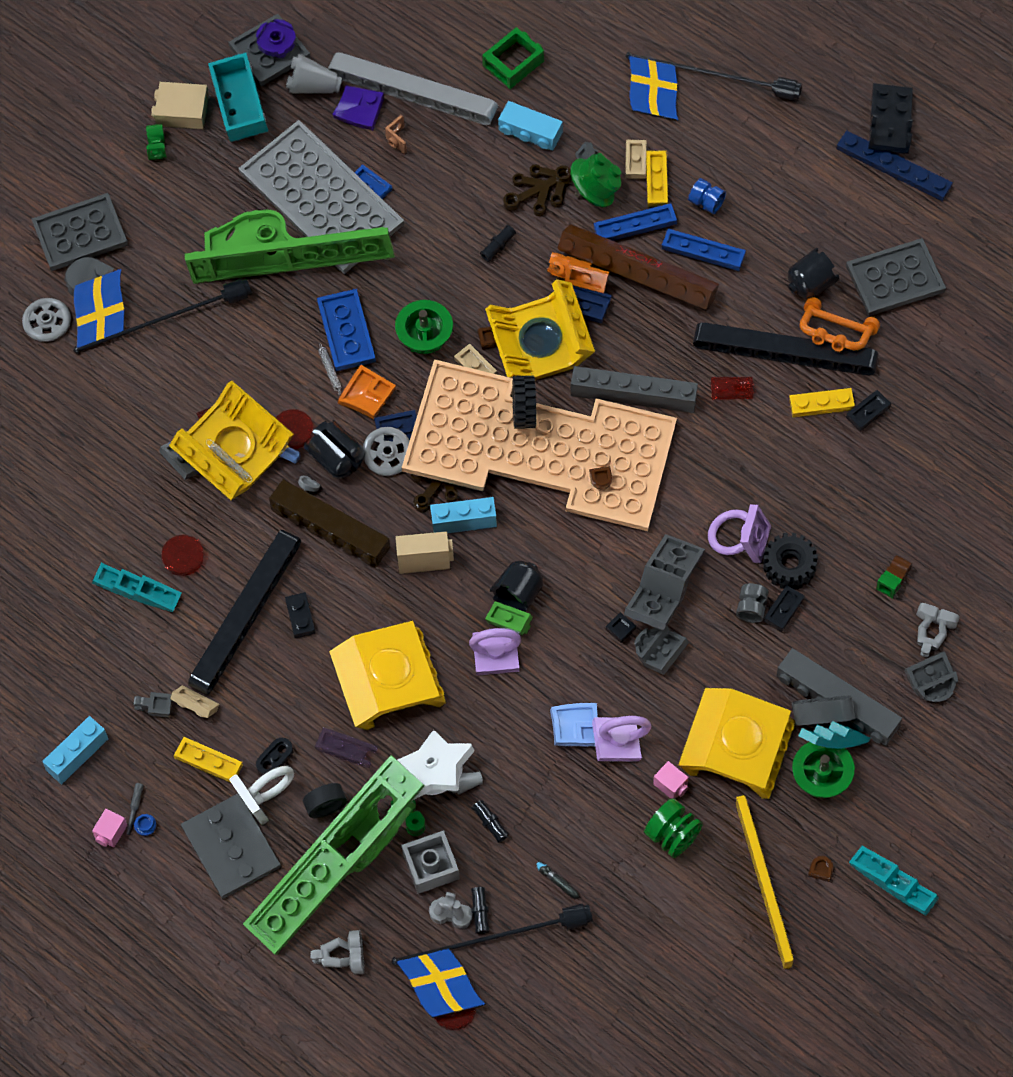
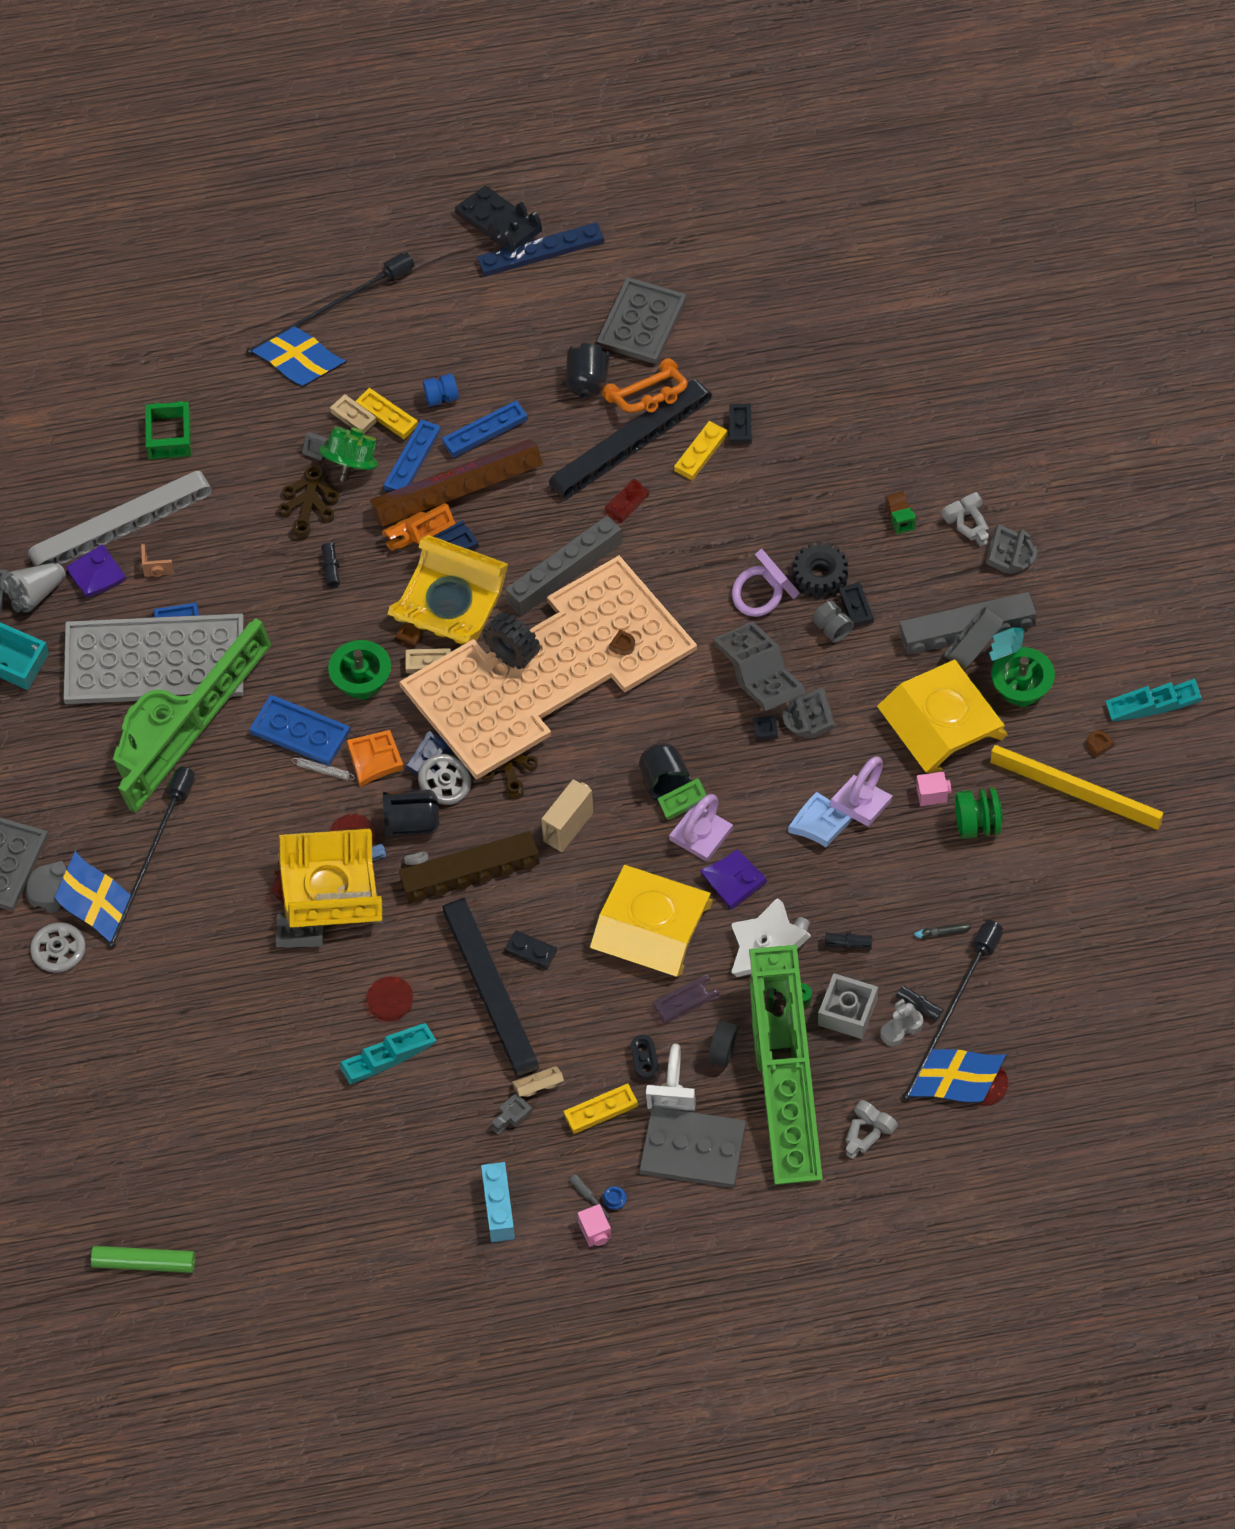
camera: 50 degrees left, 5 degrees down
(464, 515) = (559, 766): medium azure brick -> none
(475, 703) = (734, 878): none -> dark purple plate
(530, 126) = (245, 463): medium azure brick -> none

